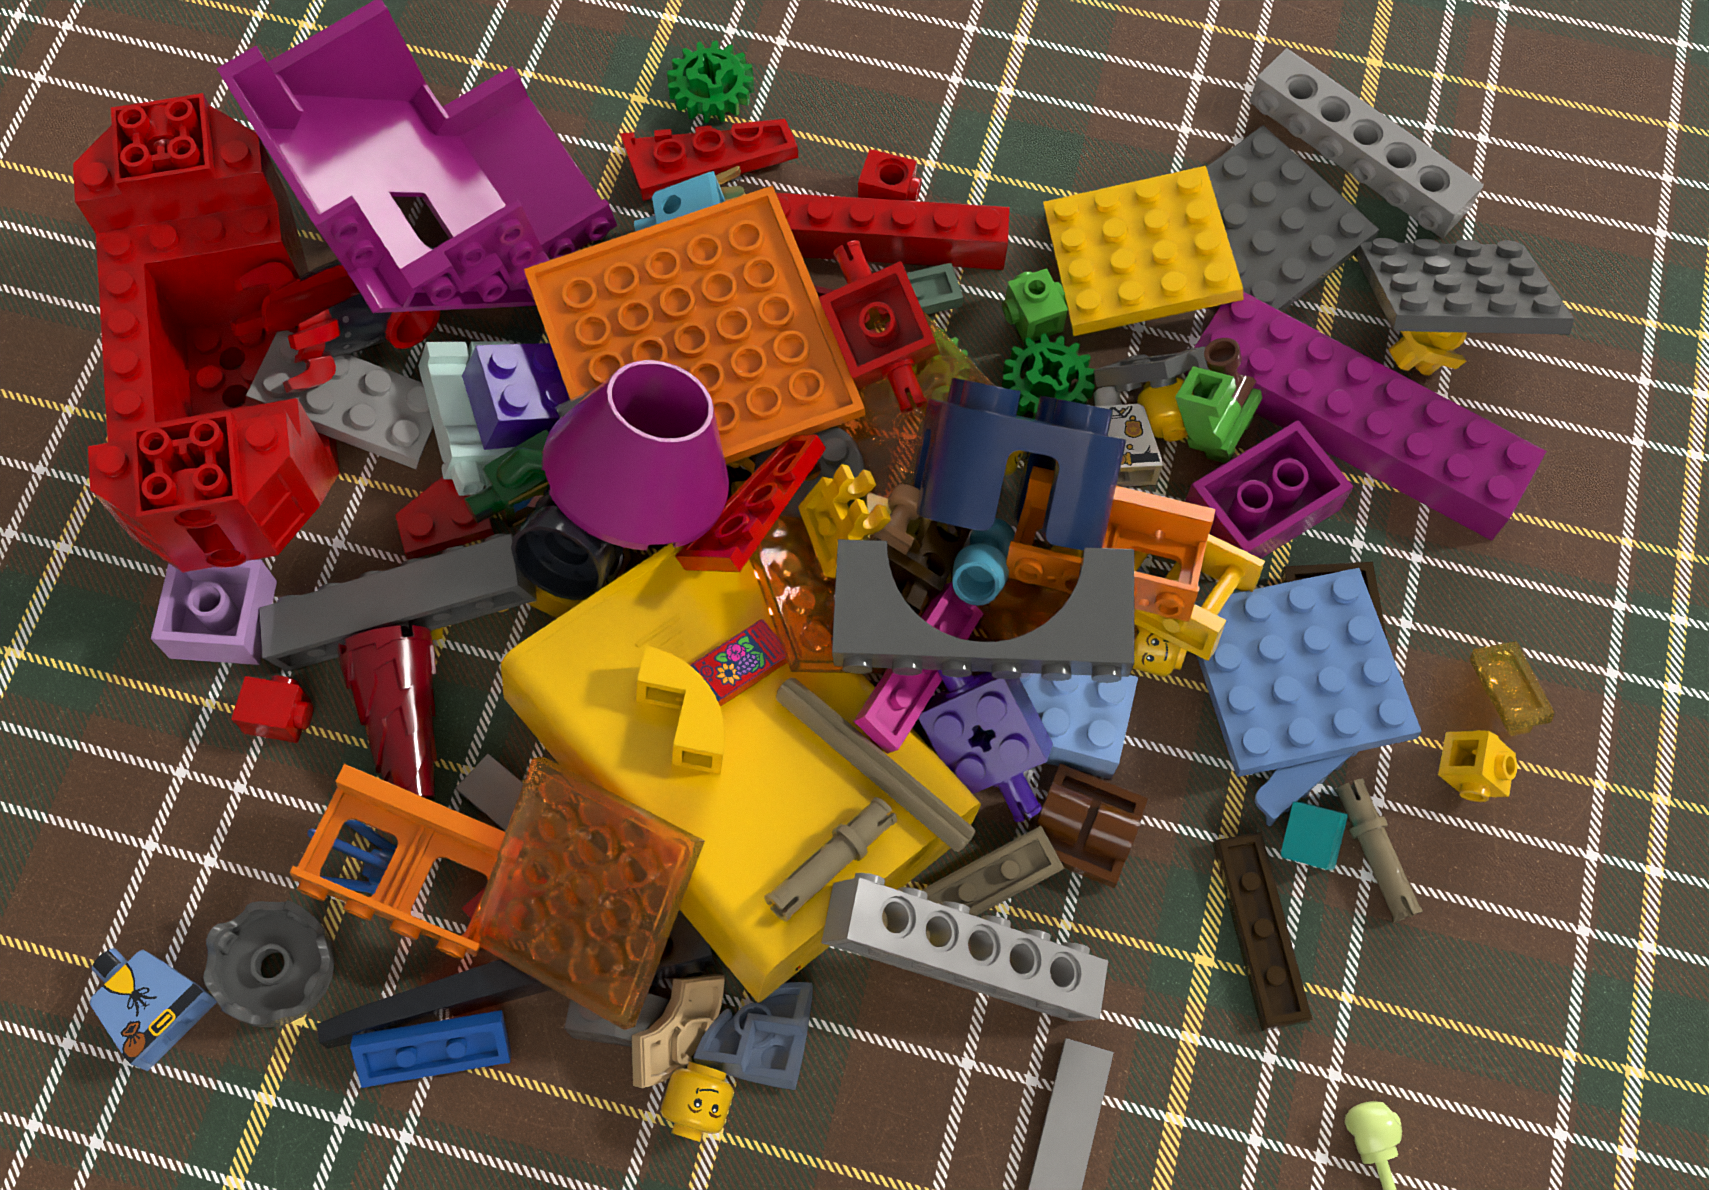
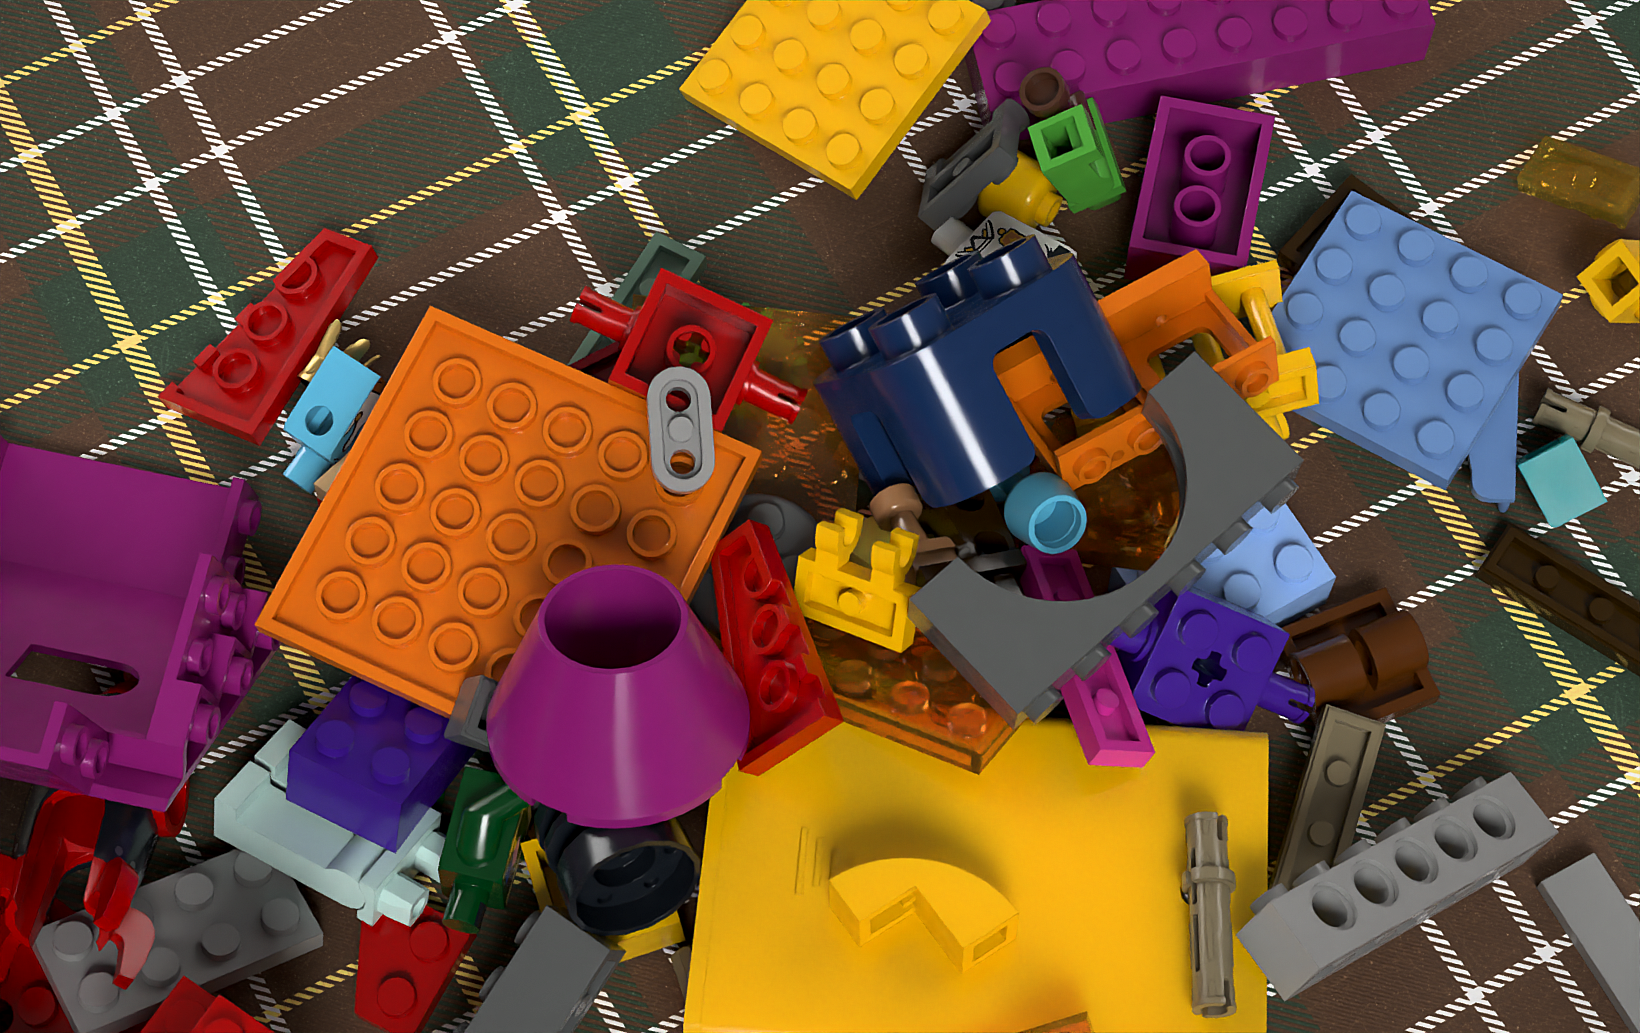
camera: 40 degrees left, 0 degrees up
(710, 81) = (199, 256): green gear -> none
(741, 661) = (917, 807): tile -> none
(823, 354) = (680, 431): none -> light grey plate
(875, 764) = (1144, 787): dark tan axle -> none
(885, 168) = (500, 225): red brick -> none
(899, 230) = (572, 240): red brick -> none
(1035, 305) = (786, 201): bright green brick -> none
(1049, 373) = (854, 250): green gear -> none

